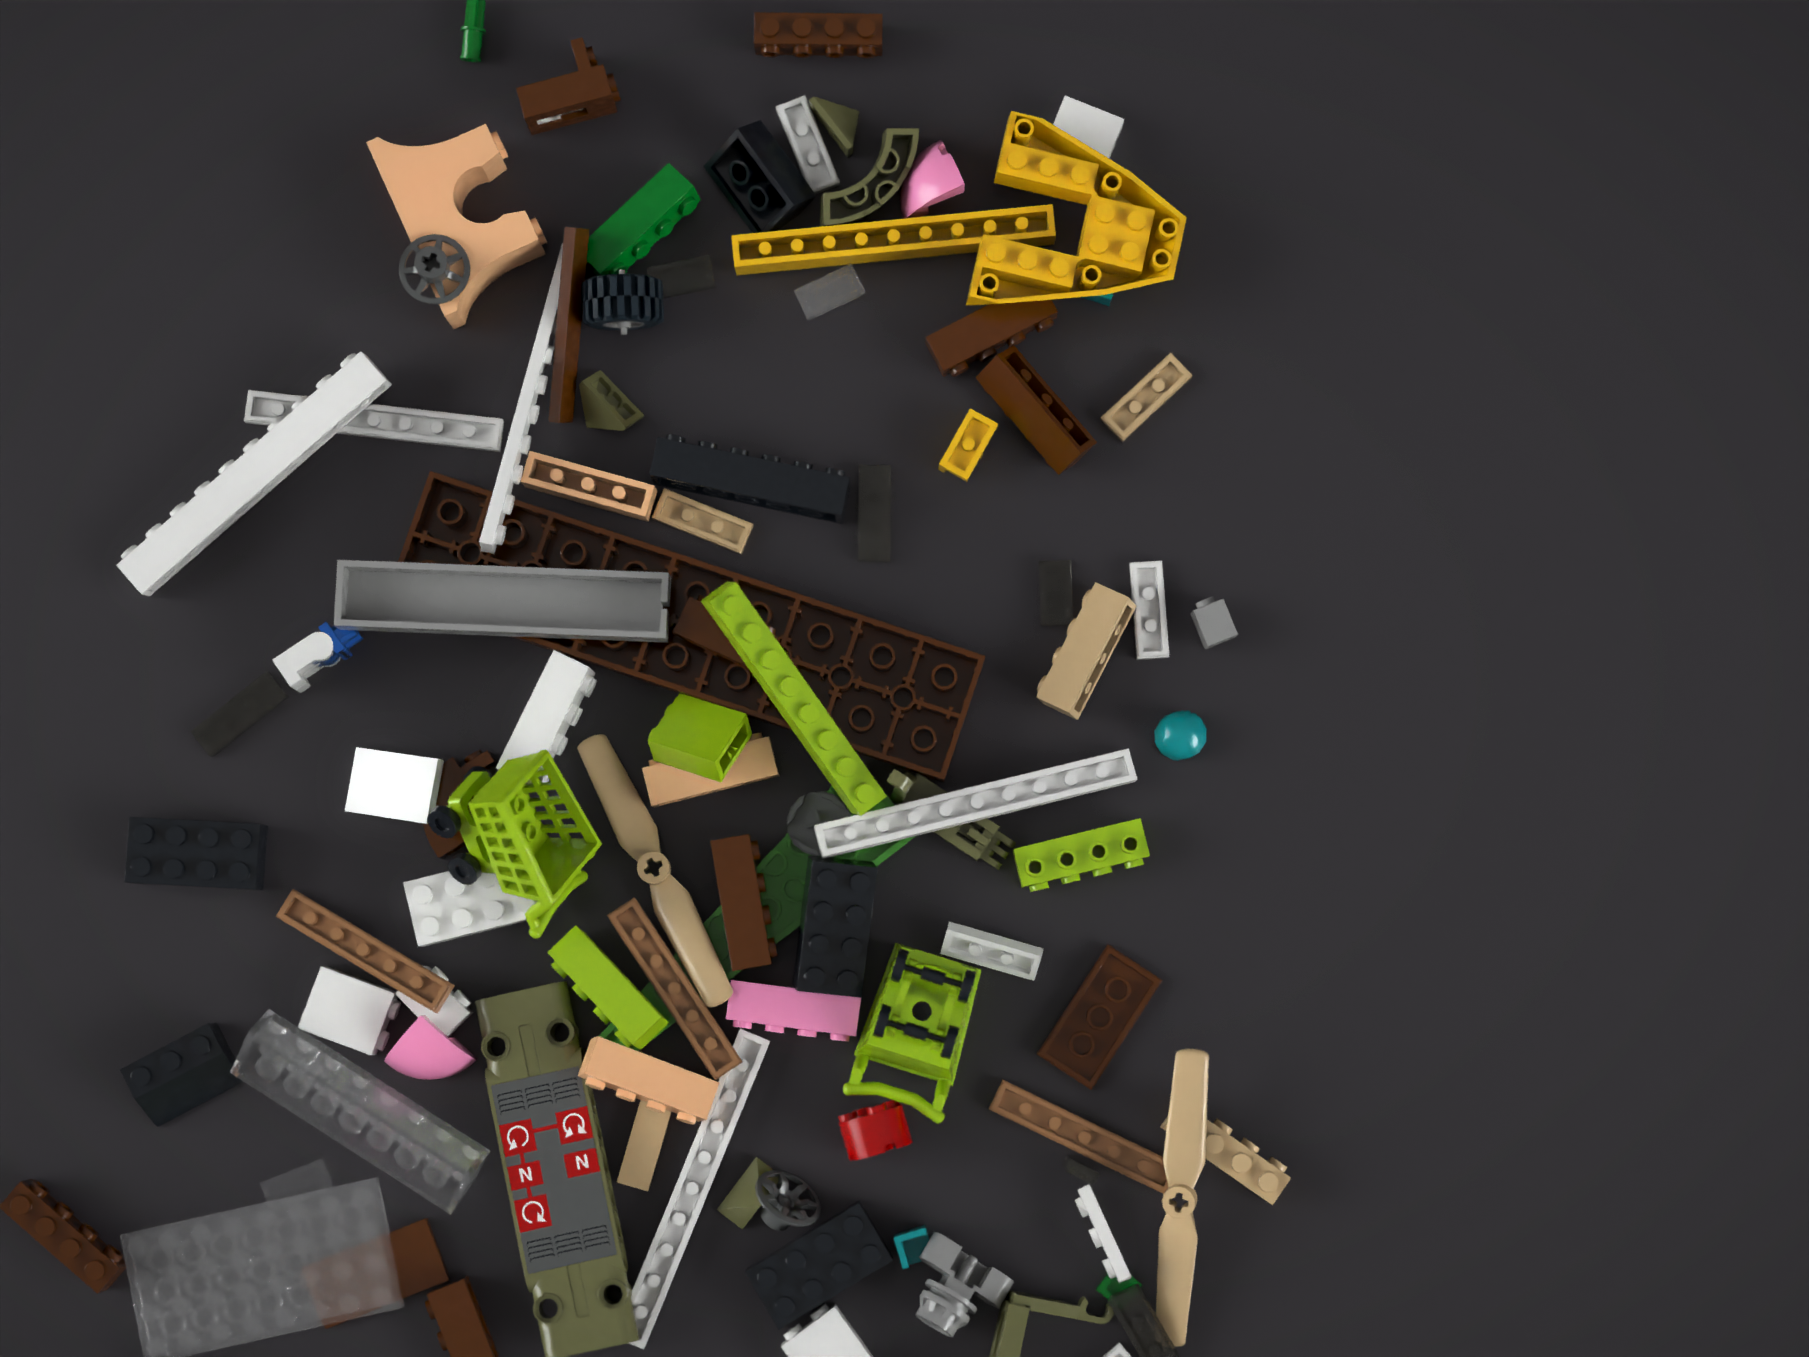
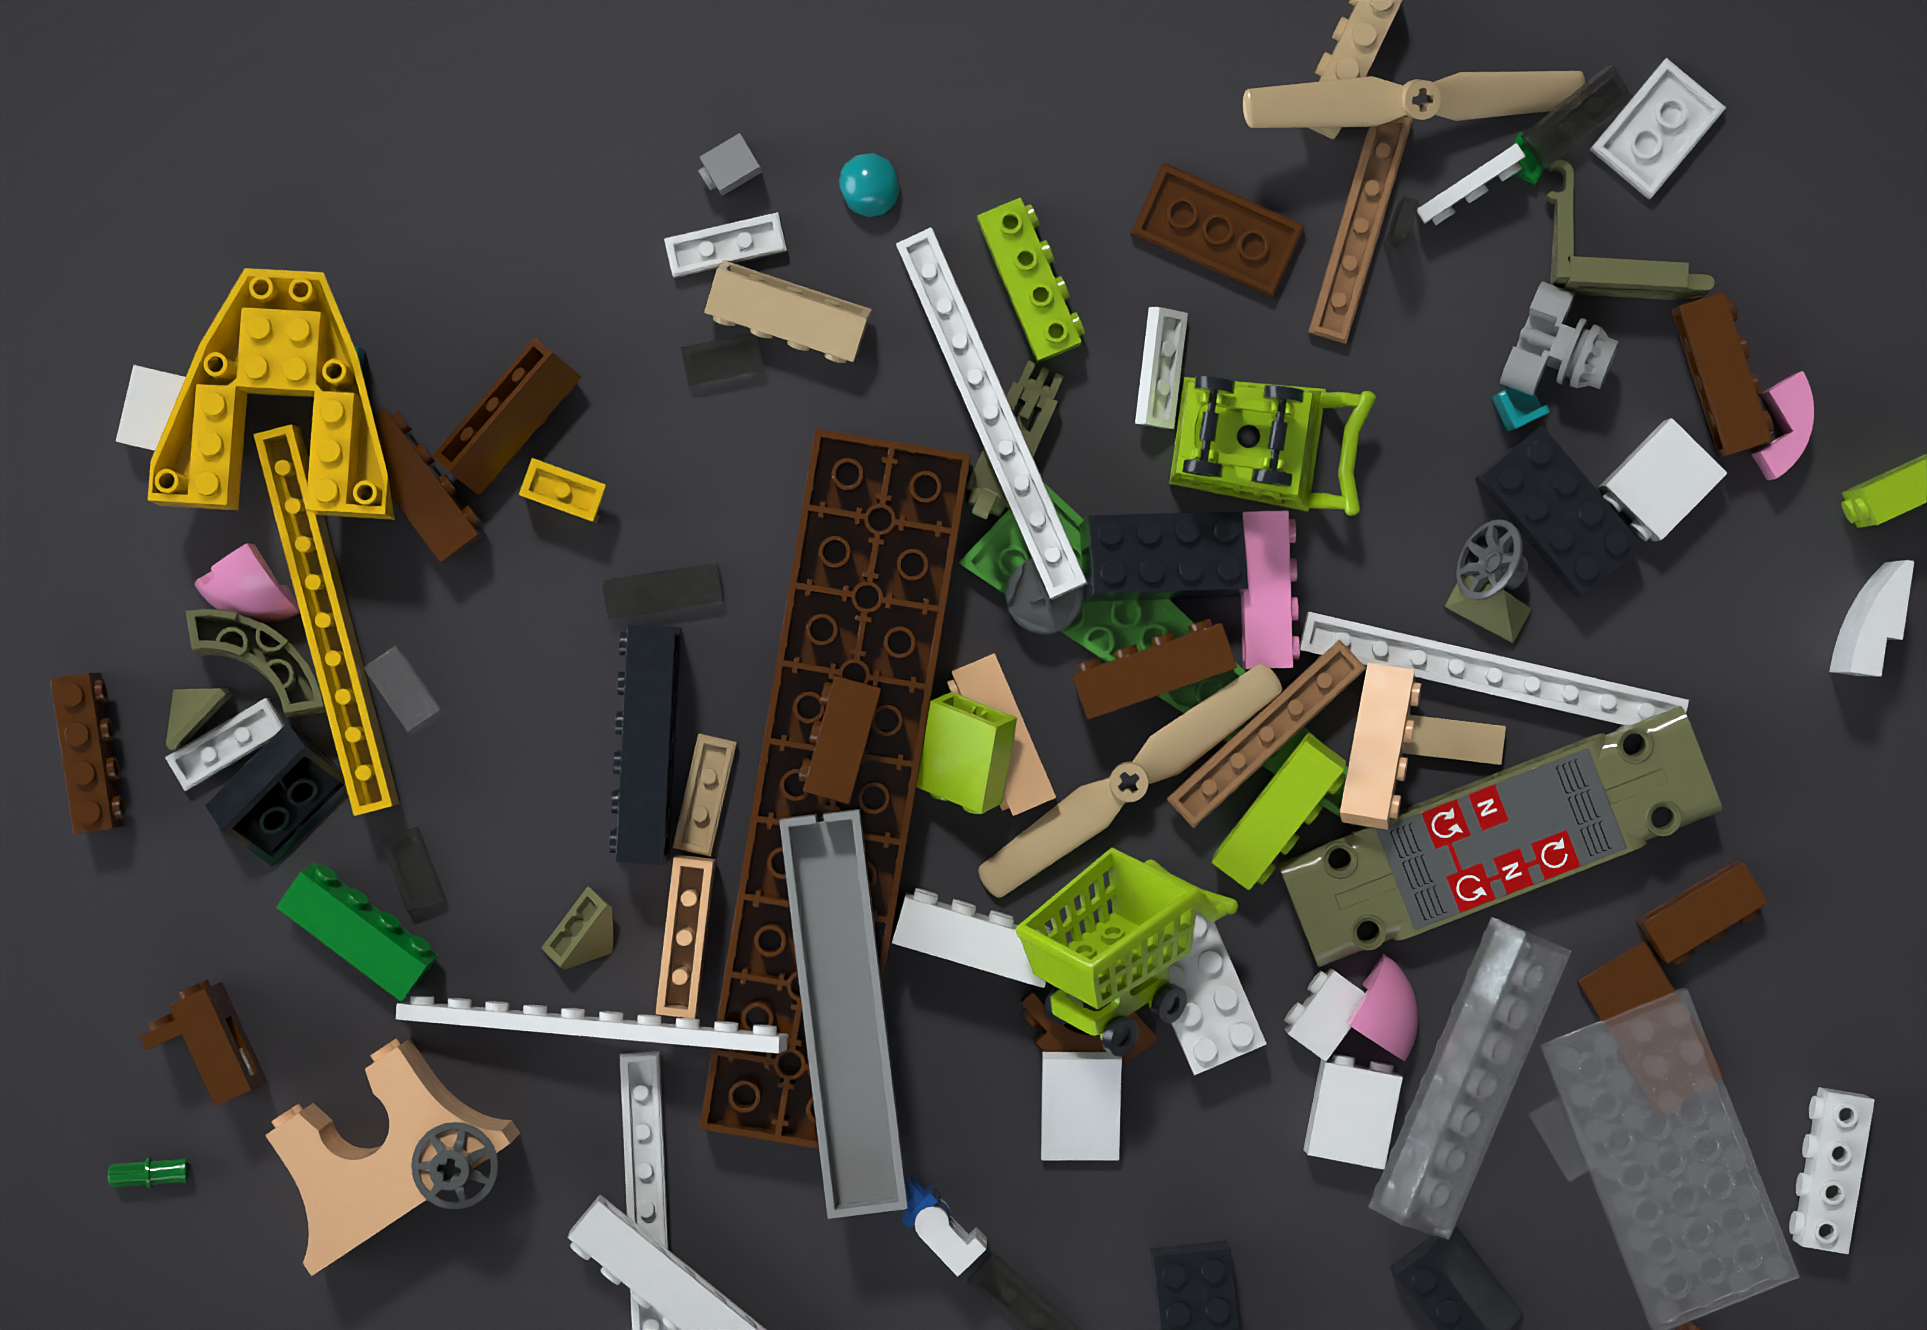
camera: 95 degrees left, 5 degrees up
(365, 951) = (1281, 1105): medium nougat tile -> none
(568, 325) = (494, 993): reddish brown tile -> none
(622, 302) = (456, 933): black wheel -> none
(793, 698) = (904, 646): lime brick -> none
(874, 1130) = (1394, 471): red brick -> none
(1146, 397) = (469, 287): tan tile -> none

